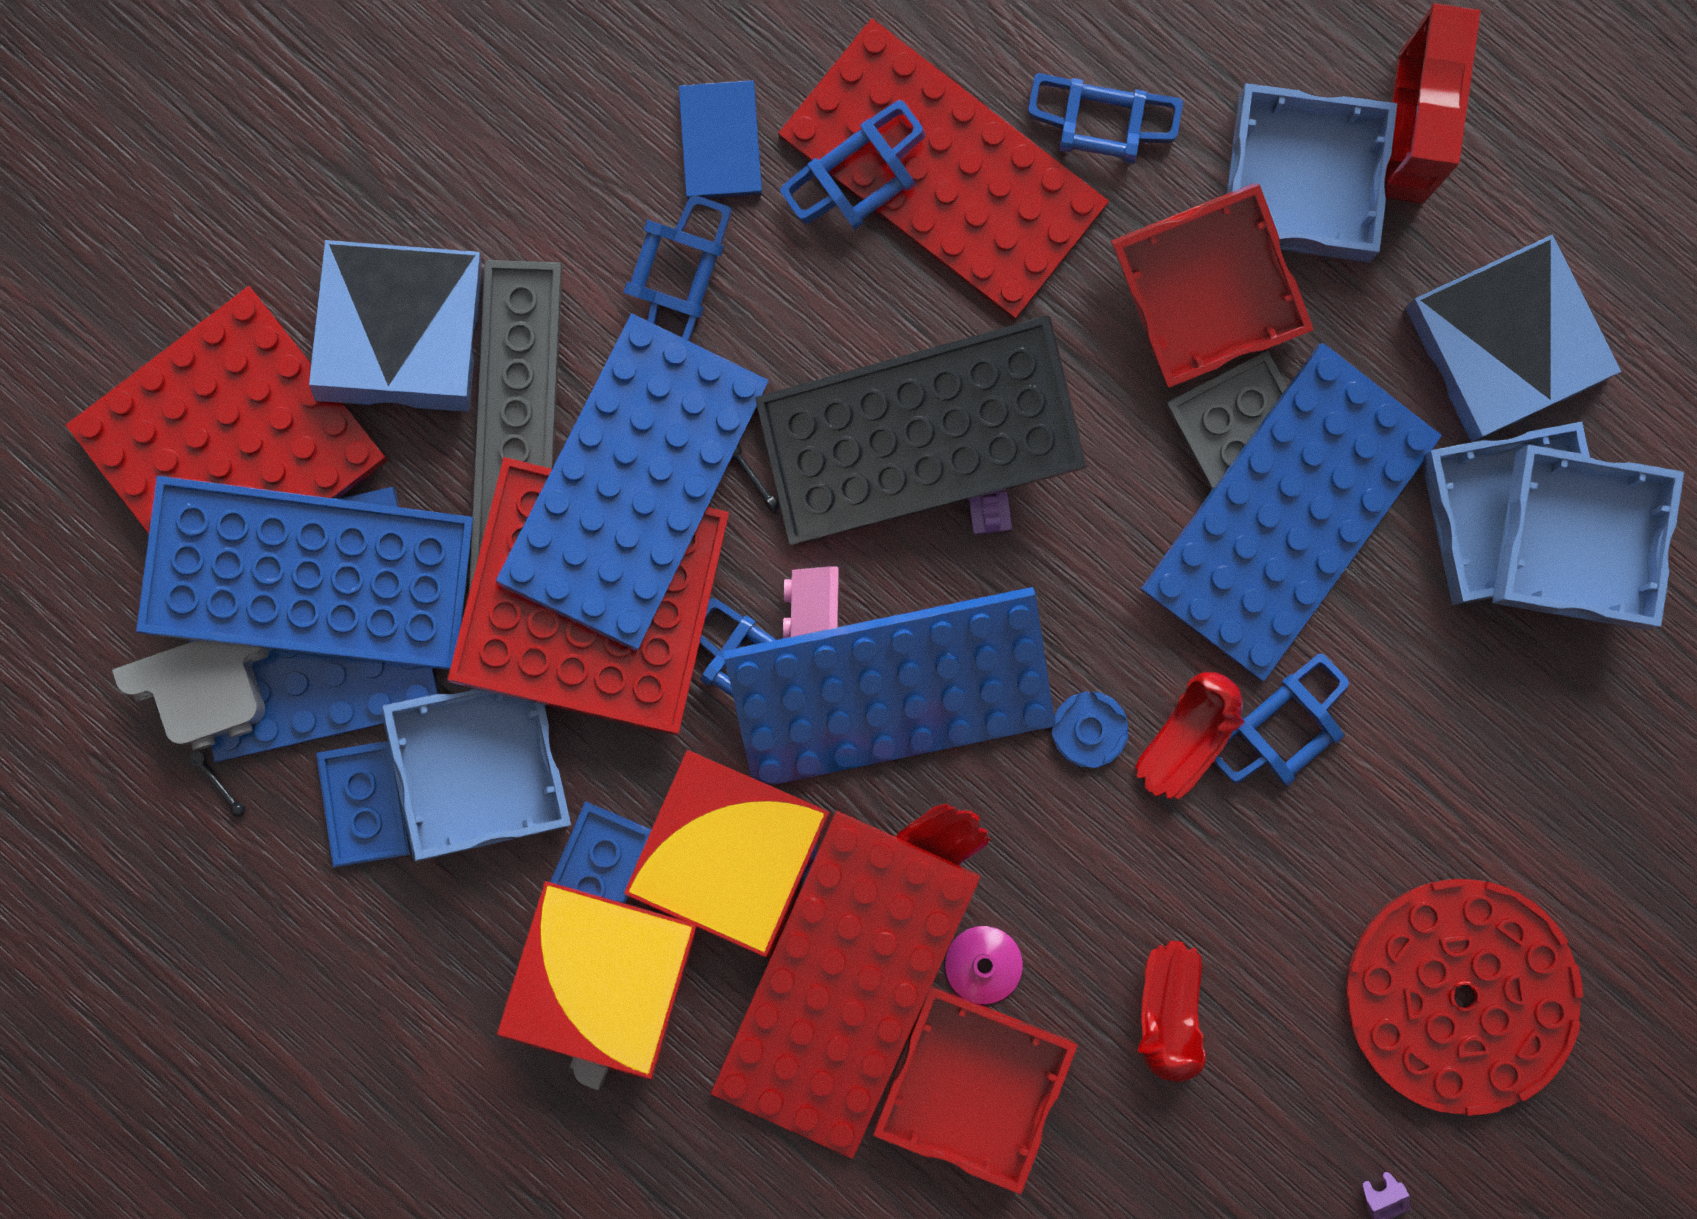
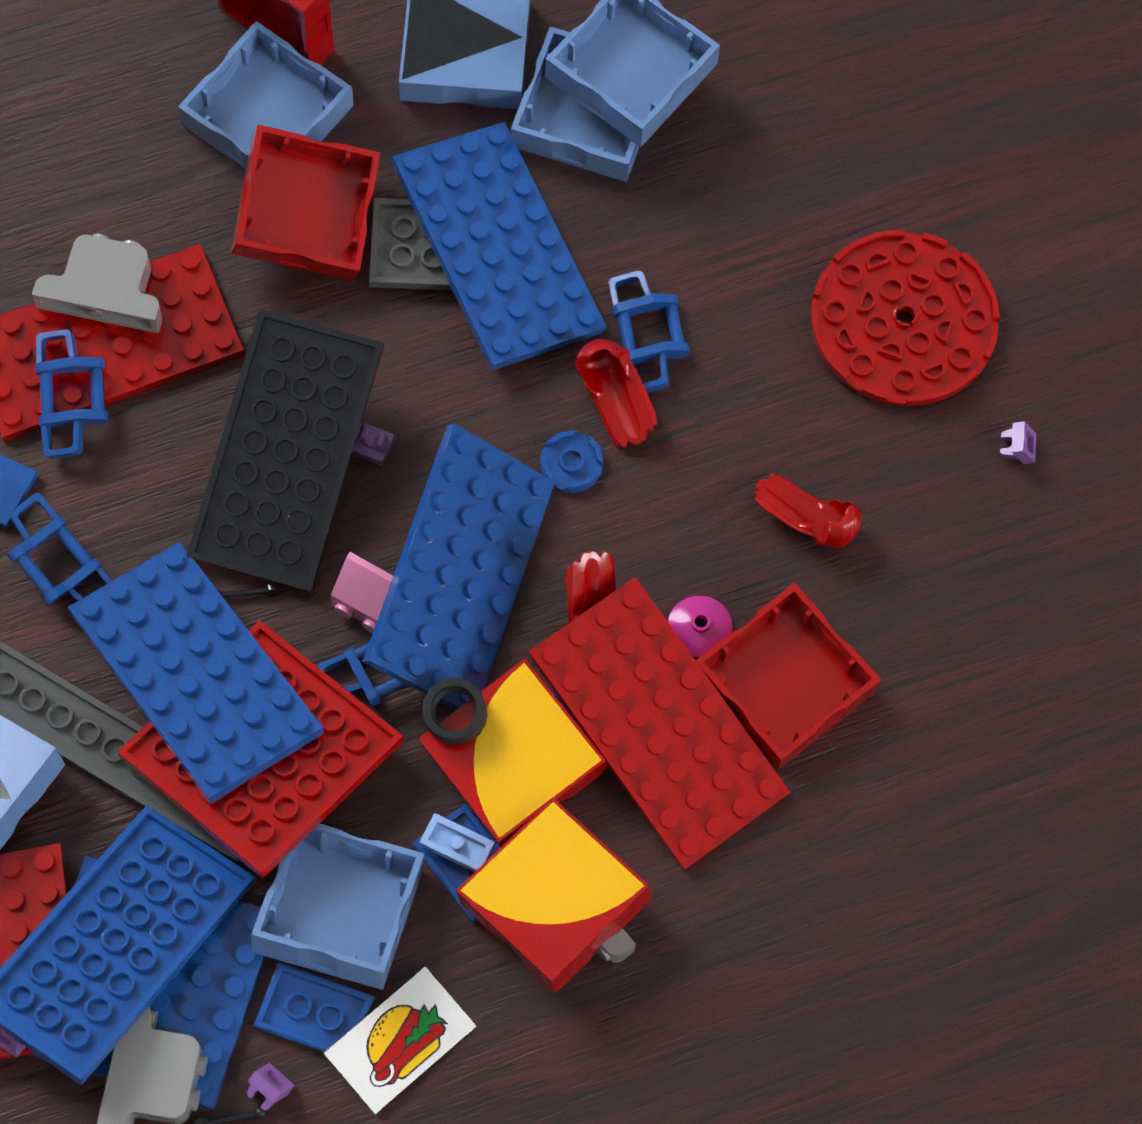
camera: 65 degrees left, 15 degrees down
(266, 805) = (269, 1083): none -> medium lavender tile
(381, 905) = (400, 1040): none -> sticker
(603, 850) = (456, 843): none -> light blue plate
(702, 760) = (450, 686): none -> black tyre
(998, 132) = (103, 284): none -> light grey brick
(1134, 100) = (141, 188): blue bar -> none

